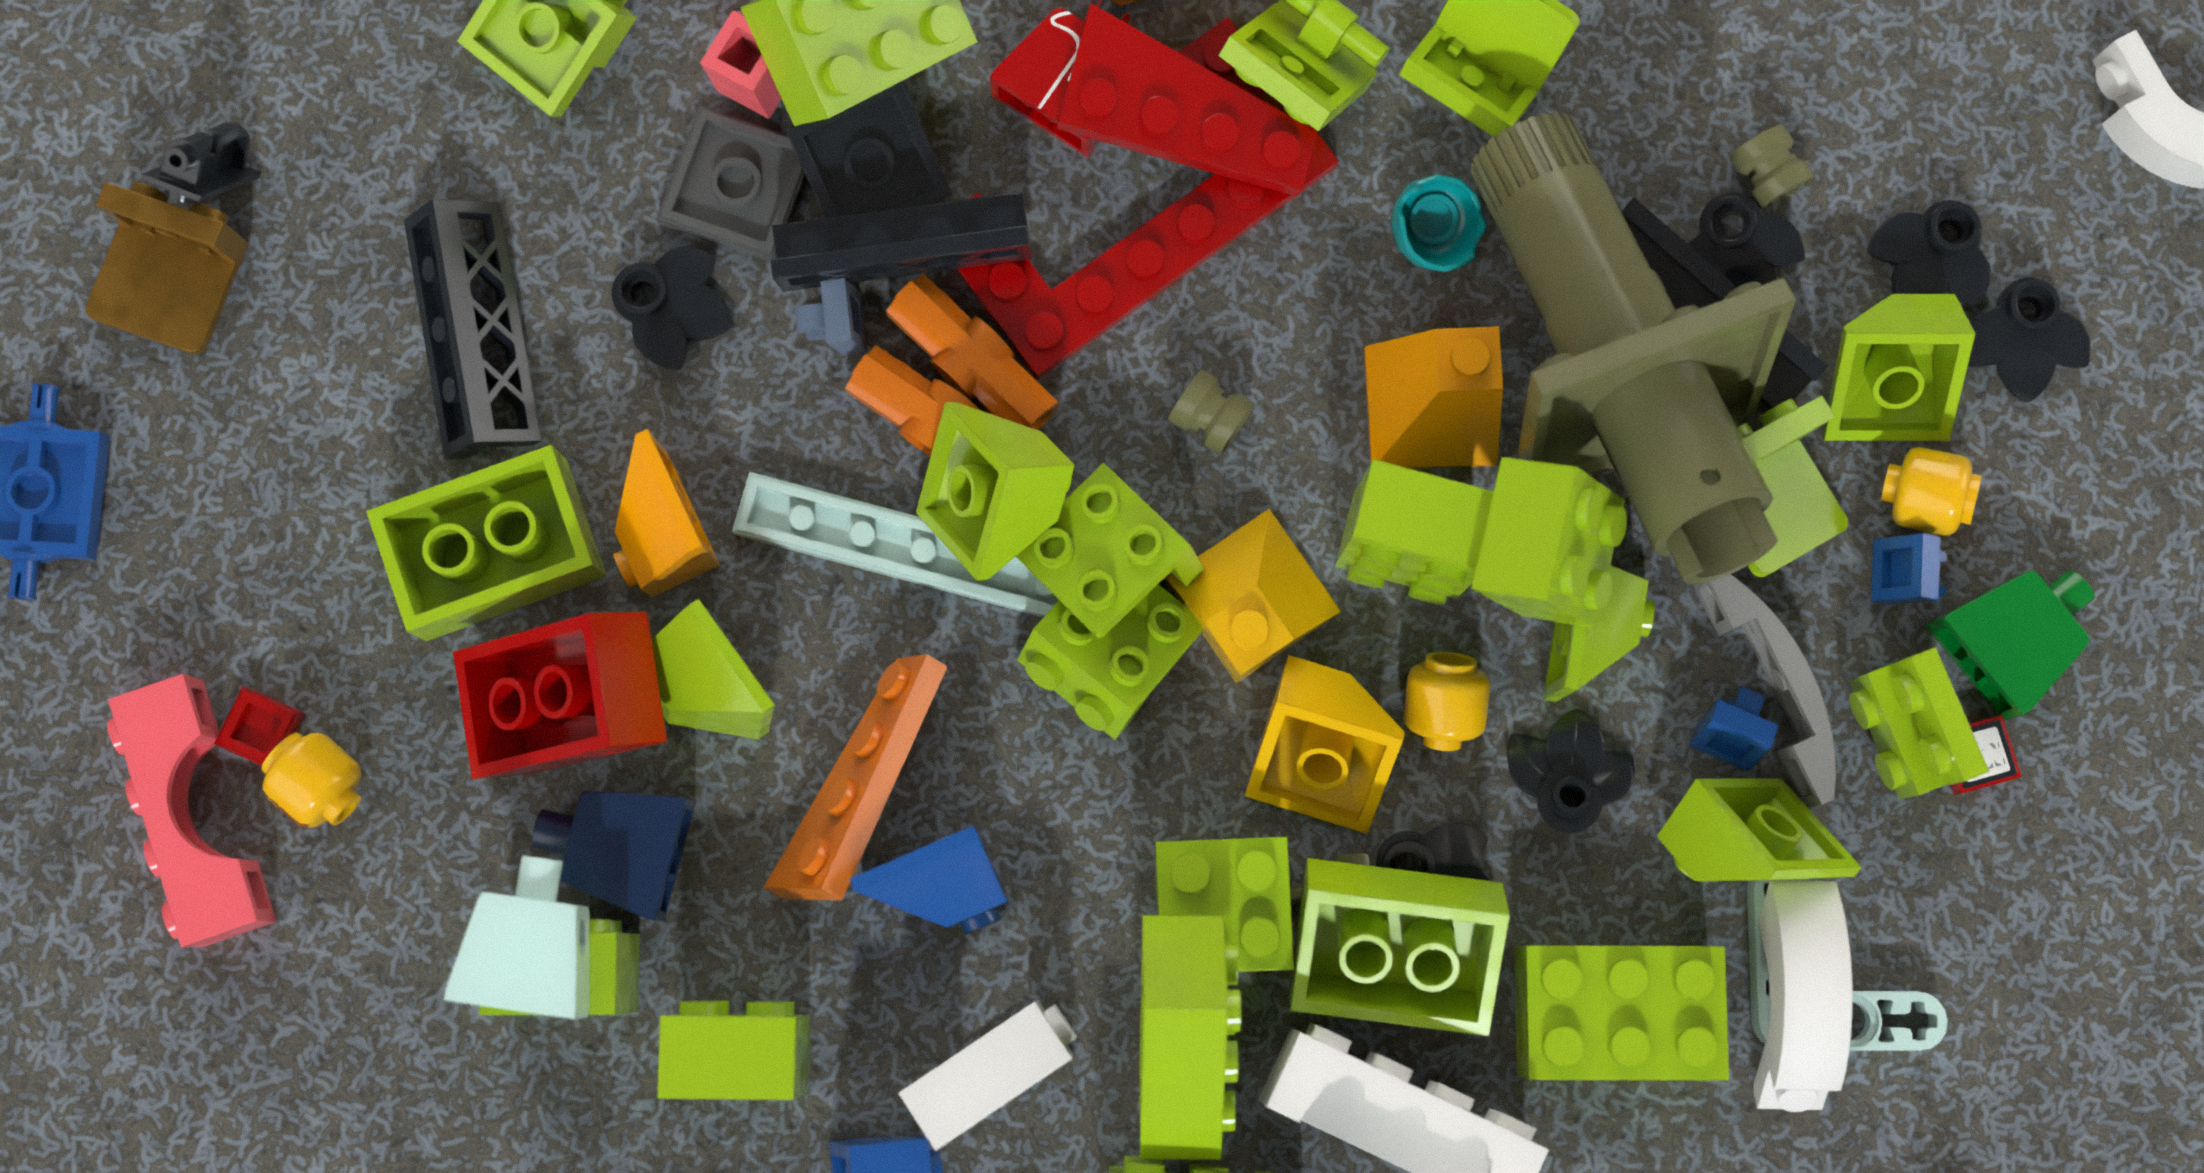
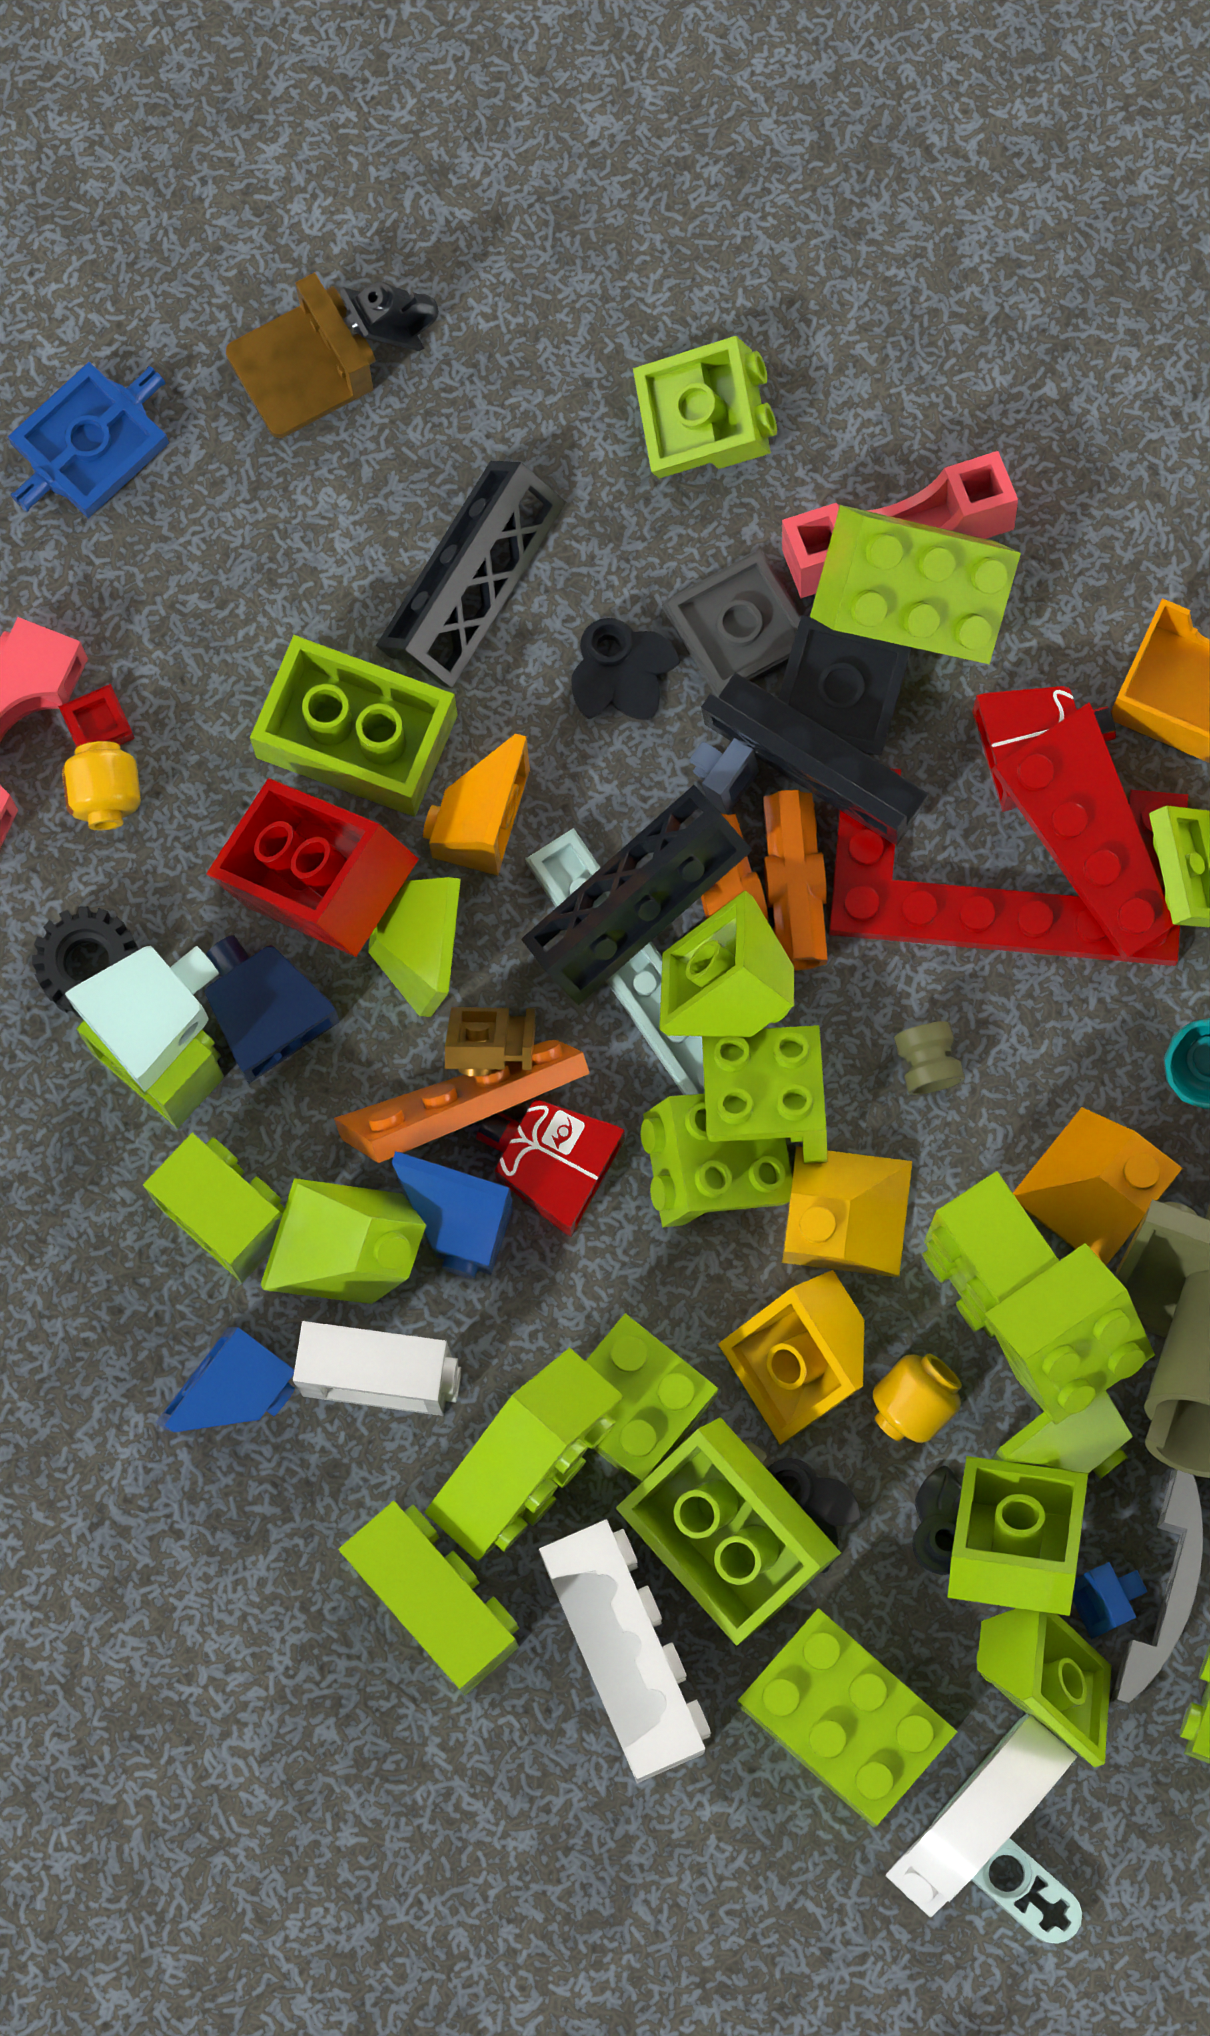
camera: 45 degrees right, 5 degrees down
(397, 930) = (66, 935): none -> black tyre
(838, 711) = (486, 1038): none -> pearl gold plate
(863, 484) = (639, 899): none -> black fence
(868, 989) = (343, 1242): none -> lime slope
(977, 763) = (553, 1159): none -> red torso
(1637, 744) = (1017, 1535): none -> lime brick

